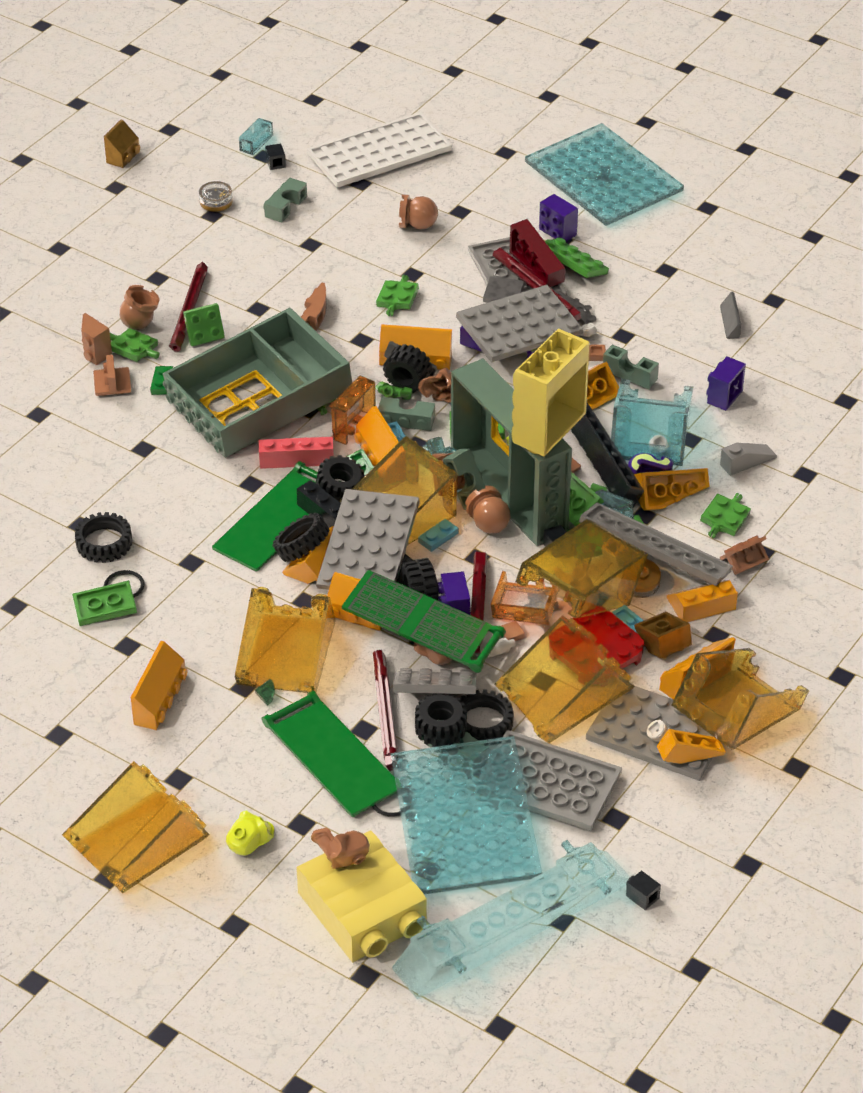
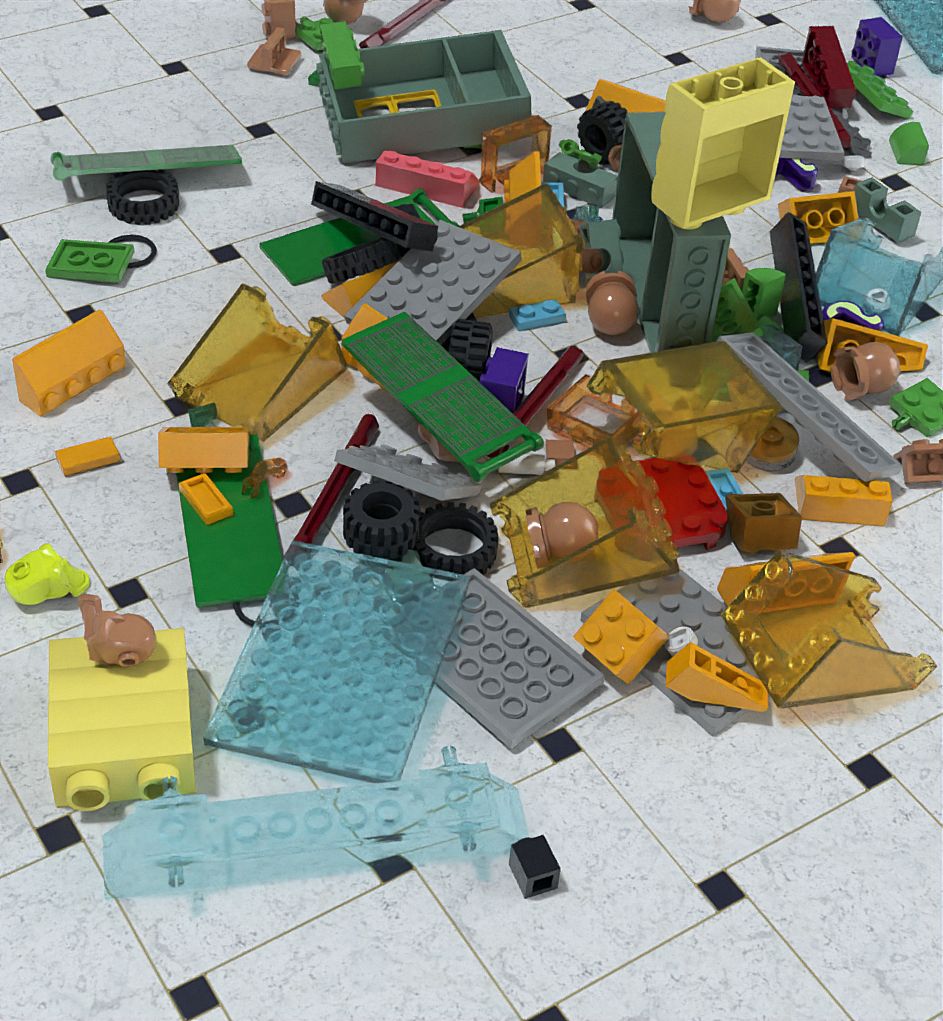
camera: 20 degrees right, 0 degrees up
(85, 507) = (143, 160): none -> flag
(186, 371) = (341, 55): none -> bright green brick
(204, 324) = (406, 26): bright green plate -> none
(211, 745) = (87, 456): none -> light orange tile
(291, 712) = (203, 448): none -> light orange slope
(294, 500) = (375, 216): none -> black brick
(312, 746) = (206, 499): none -> light orange tile
(315, 307) = (543, 57): nougat slope -> none
(335, 712) = (261, 471): none -> clear orange arm
(342, 469) = (450, 205): black tyre -> none
(397, 295) = (647, 70): bright green plate -> none
(554, 687) = (560, 531): none -> nougat tile
(584, 464) = (763, 291): none -> bright green brick
(619, 300) = (909, 144): none -> bright green brick
(621, 740) = (621, 636): none -> light orange brick
(676, 503) = (865, 370): none -> nougat tile

